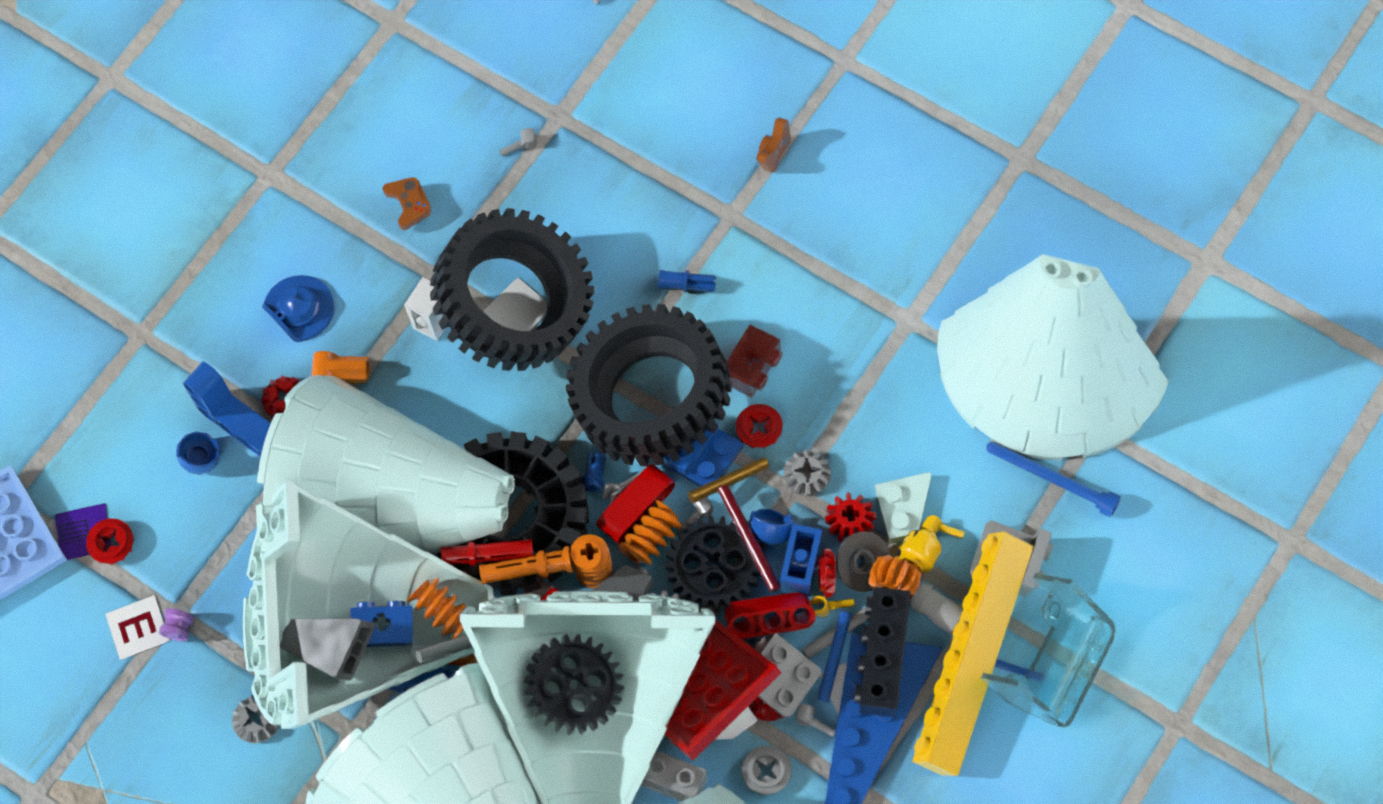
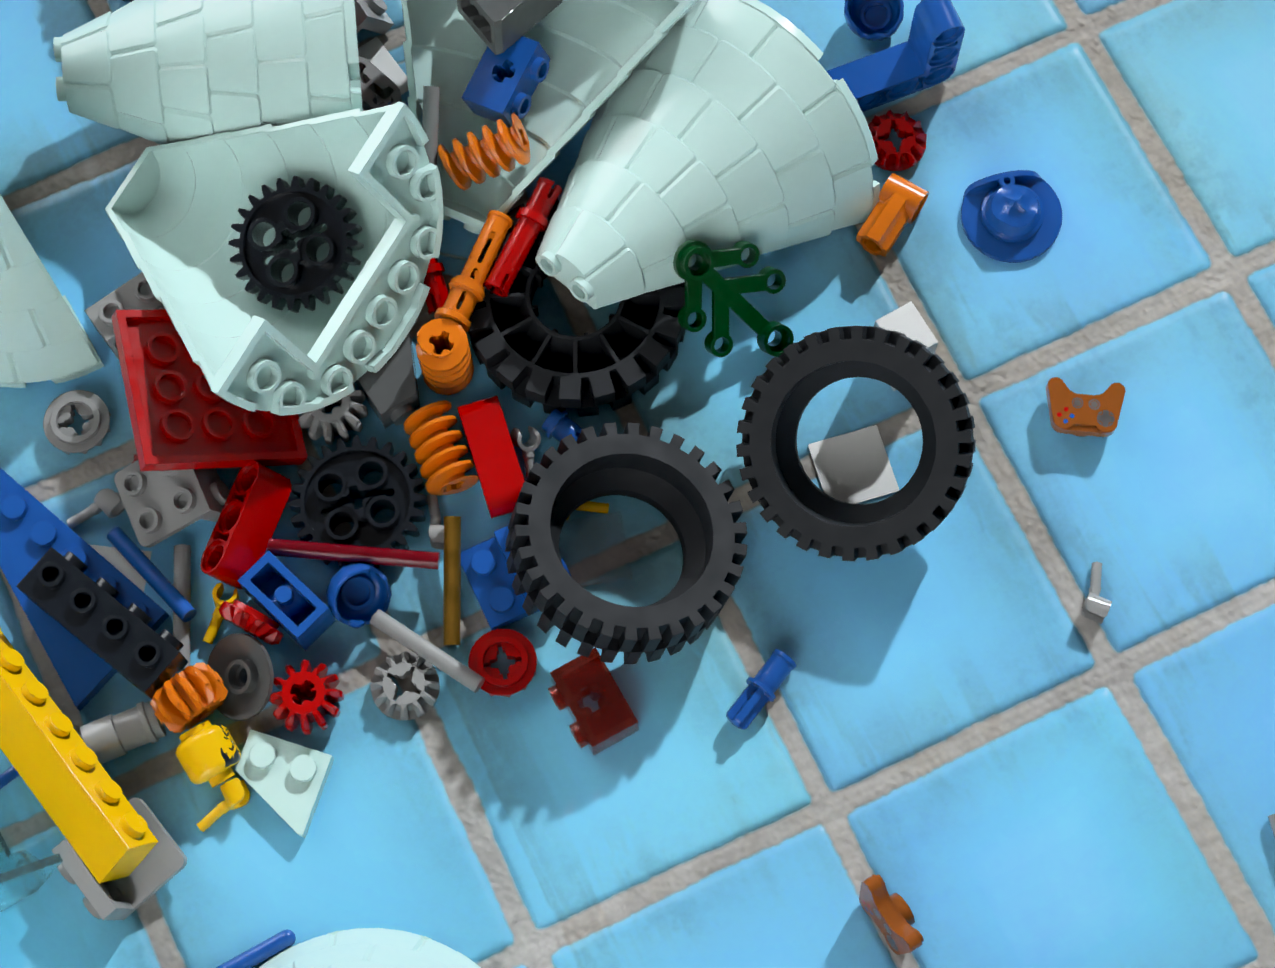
camera: 115 degrees right, 5 degrees up
(452, 428) = (727, 294): none -> dark green plant
(779, 468) = (427, 650): none -> light grey bar

